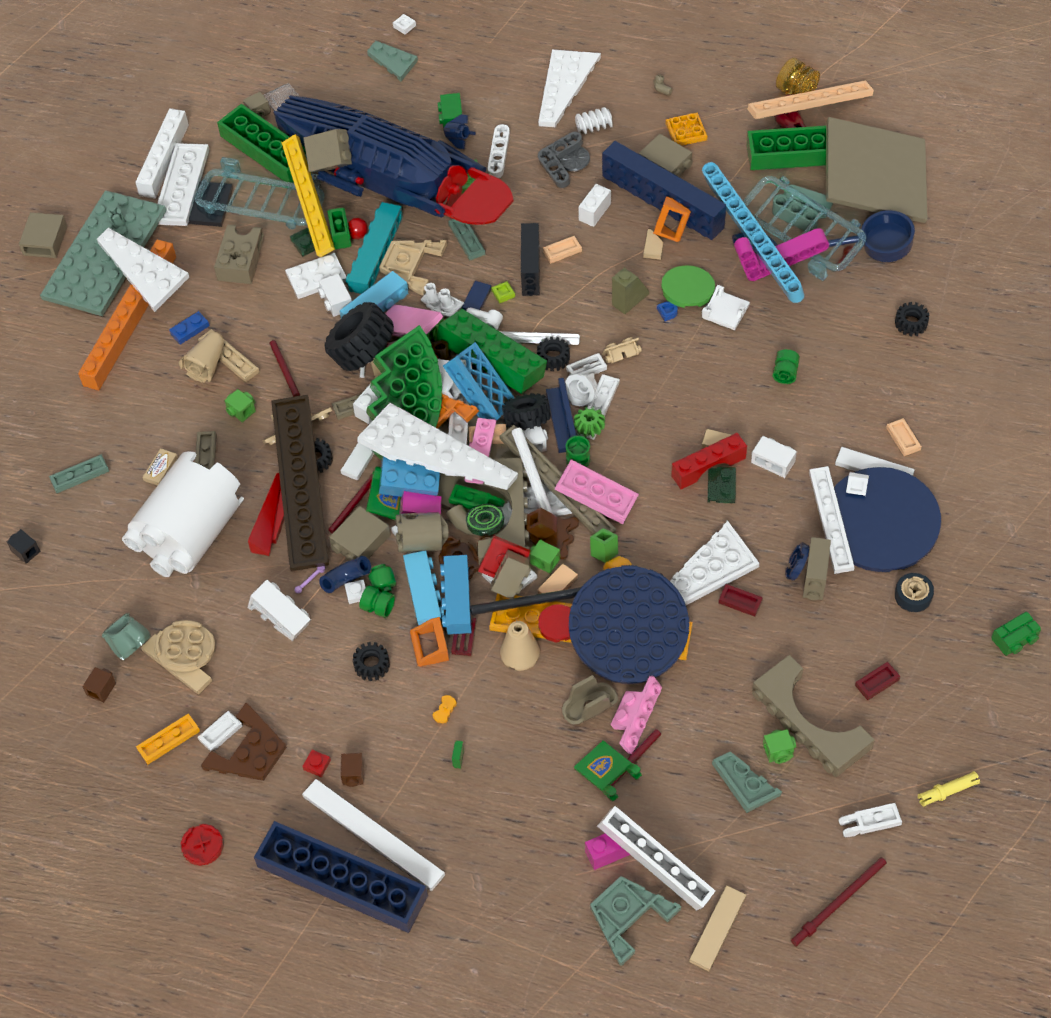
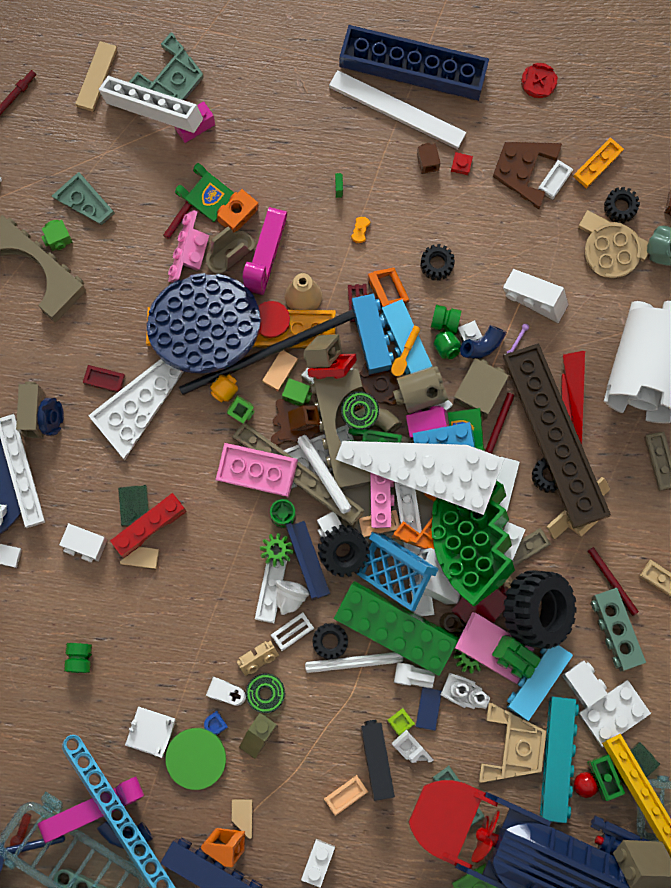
camera: 165 degrees right, 20 degrees up
(154, 682) = (625, 195): none -> black tyre
(240, 405) = (645, 523): bright green brick -> none
(293, 330) = (627, 636): none -> sand green brick
(396, 310) = (516, 657): none -> green brick
(435, 559) = (399, 364): none -> light orange piece
(498, 271) = (410, 748): none -> white slope
(567, 664) = (258, 272): none -> dark pink beam
(578, 731) = (241, 201): none -> orange brick
(619, 317) = (265, 681): none -> clear green tile
(655, 328) = (222, 691): none -> white piece

